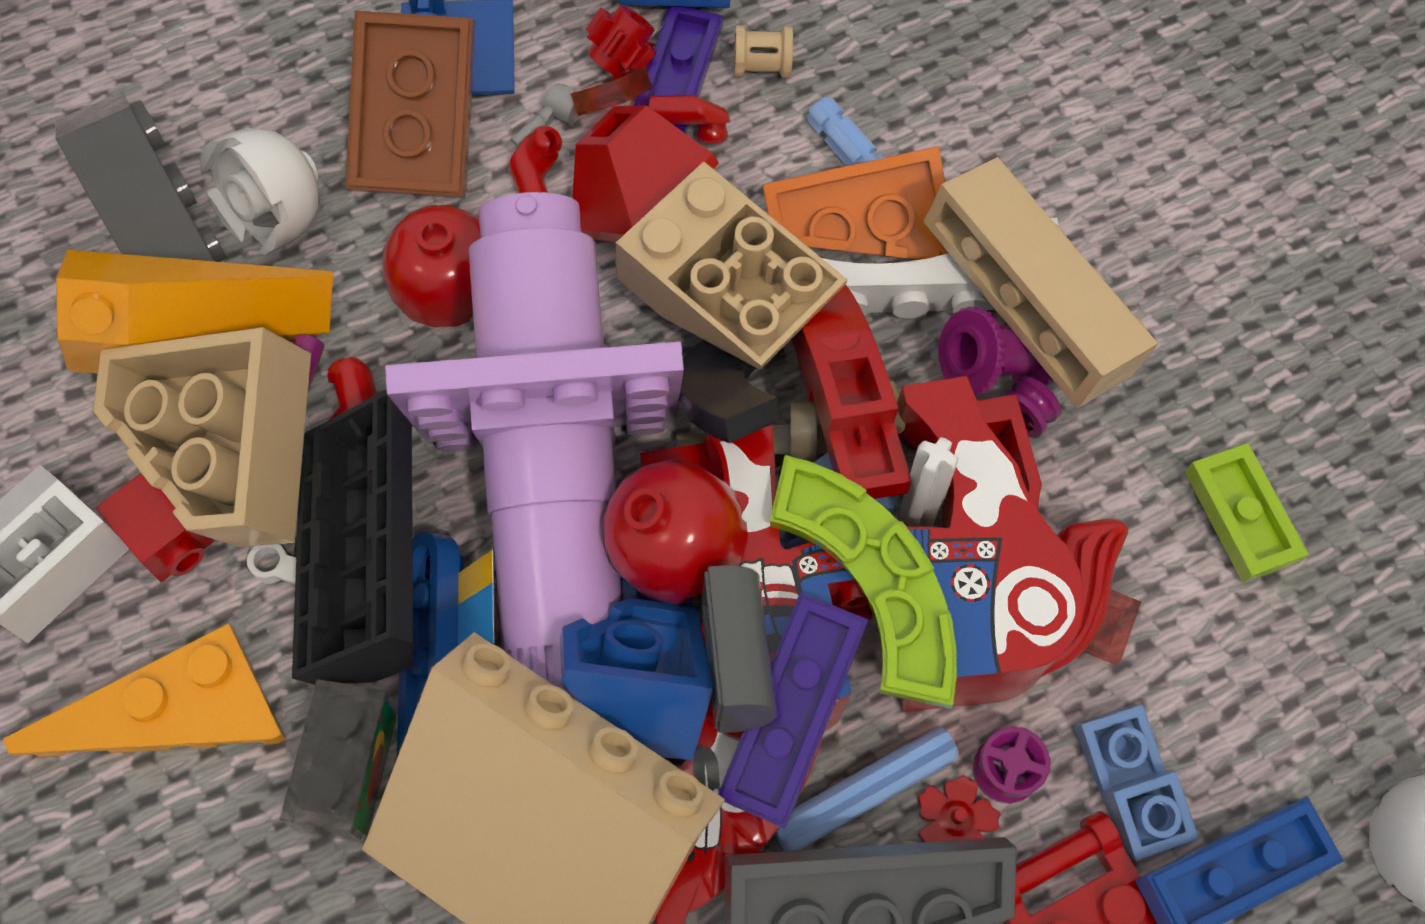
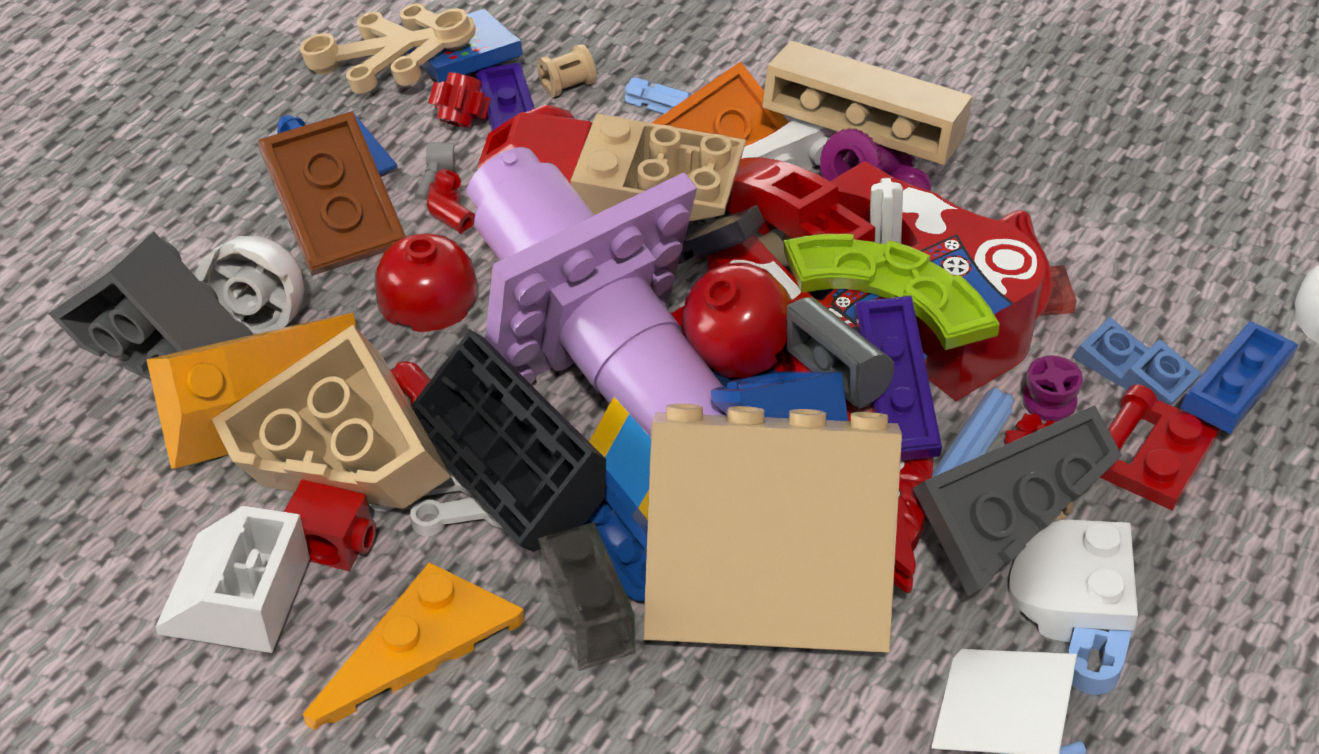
camera: 25 degrees left, 20 degrees down
(611, 91) = (476, 130): clear red tile -> none
(1246, 513) = (1091, 190): lime plate -> none

